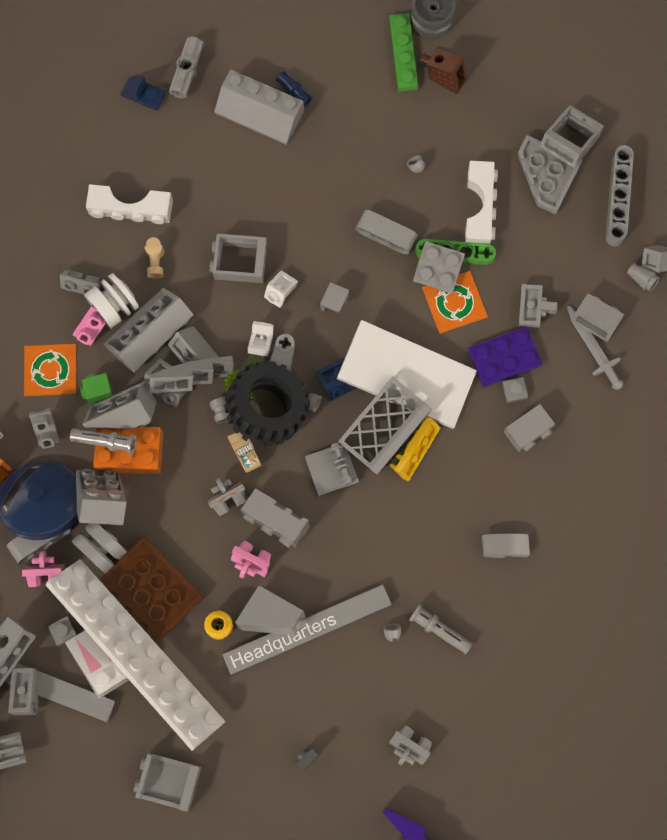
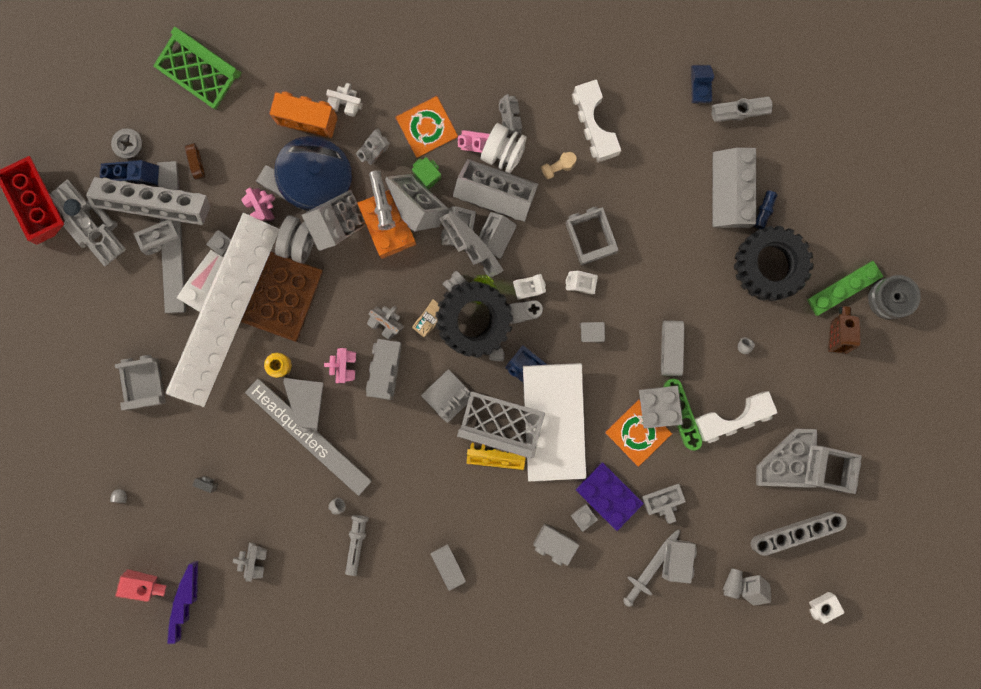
camera: 60 degrees right, 10 degrees up
(352, 79) = (793, 249): none -> black tyre

